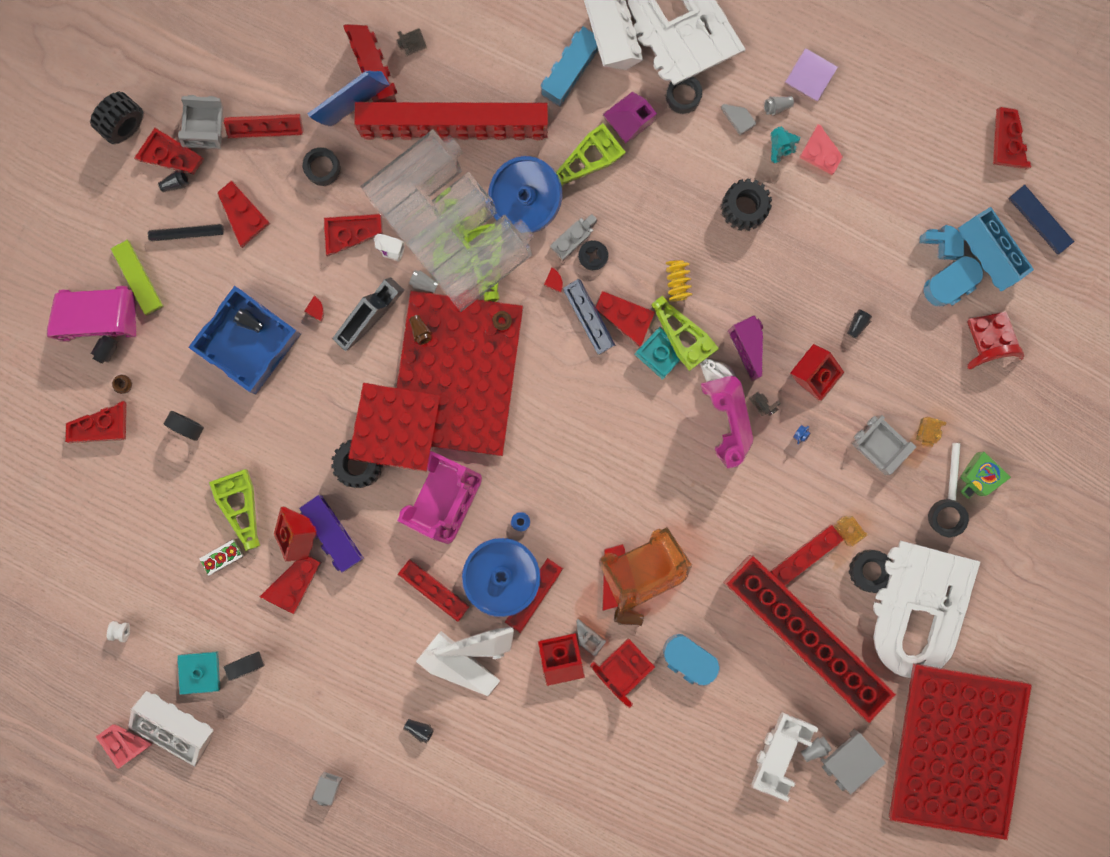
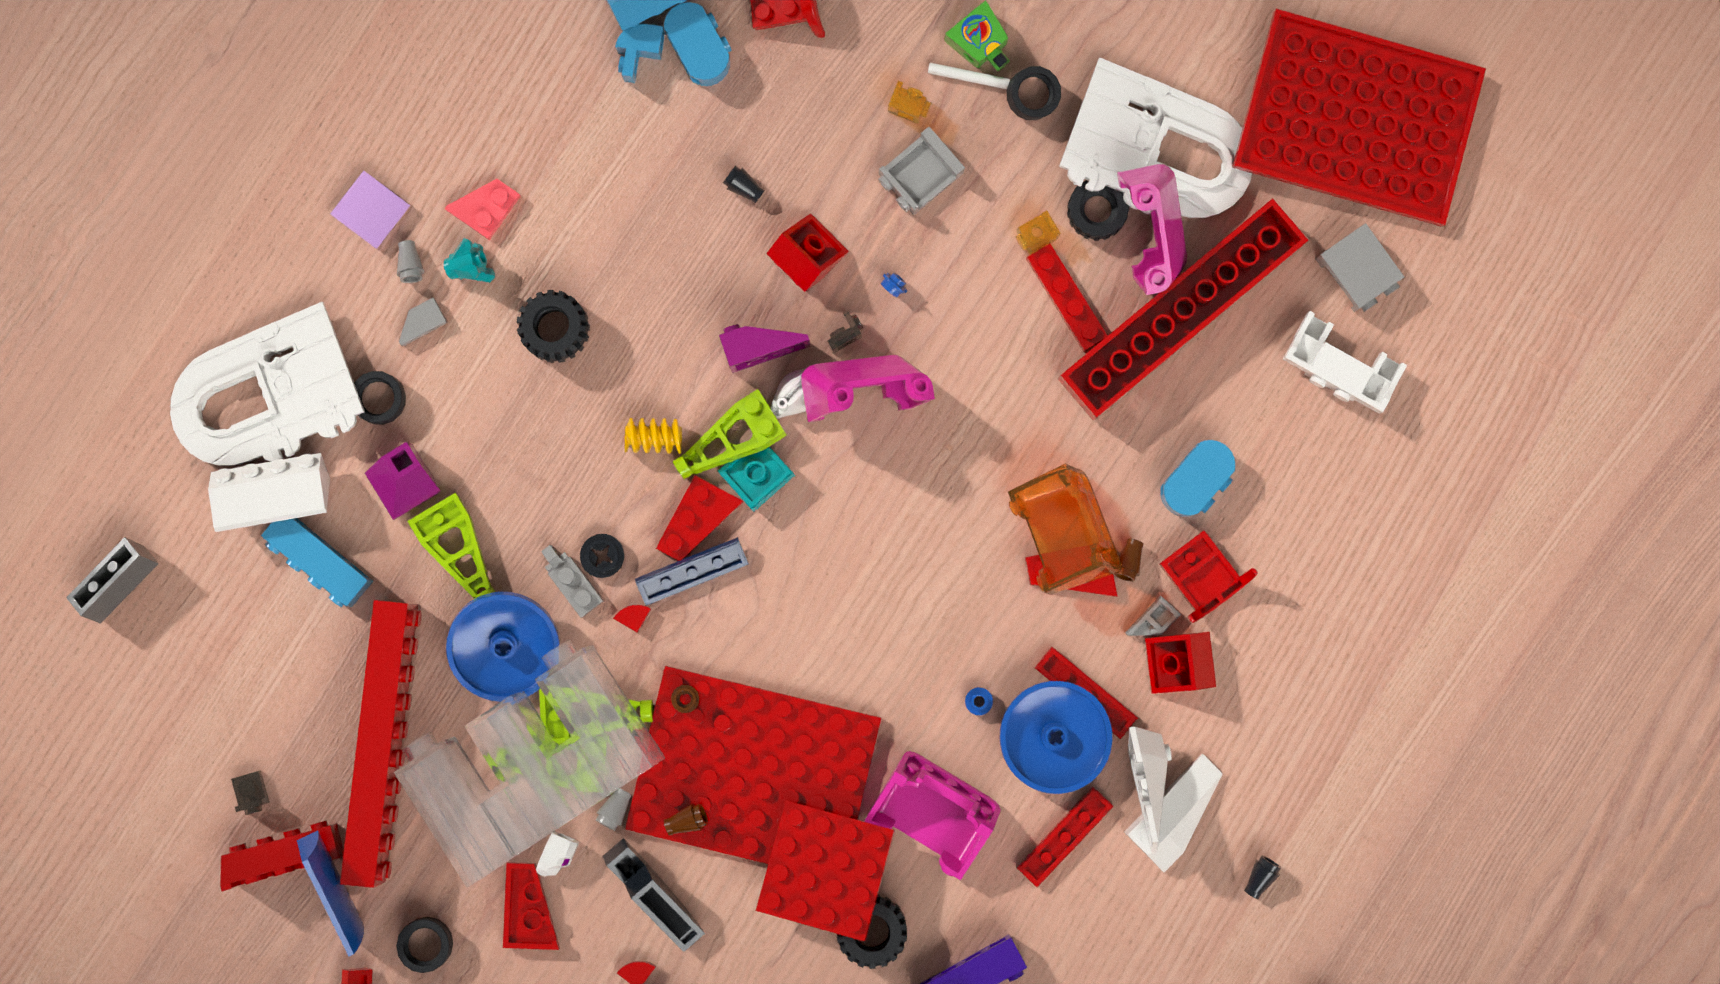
camera: 85 degrees left, 0 degrees up
(818, 749) = (1339, 314): light grey cone -> none
(893, 611) = (1156, 190): none -> dark pink windscreen

